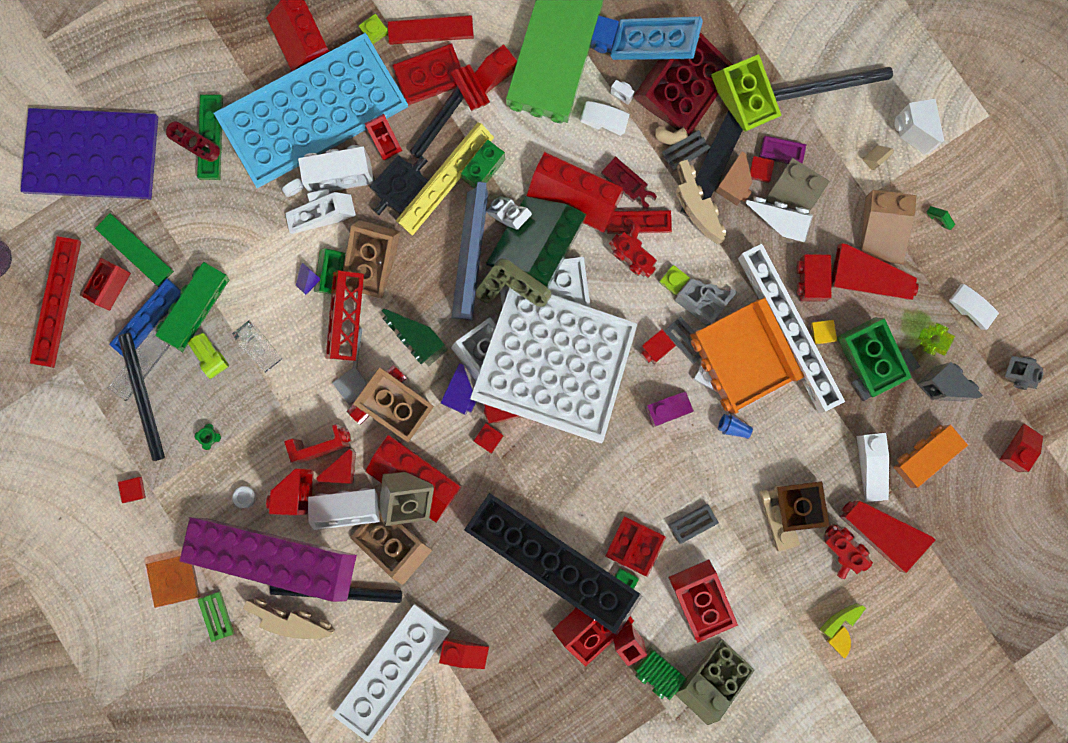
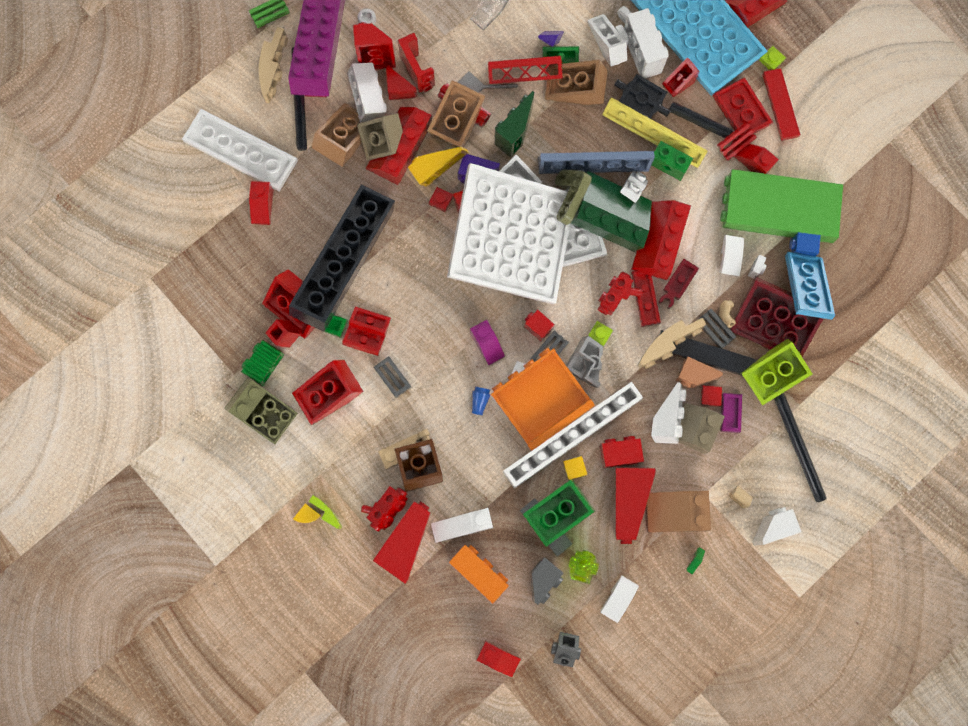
camera: 75 degrees right, 5 degrees down
(449, 444) = (433, 165): none -> yellow slope

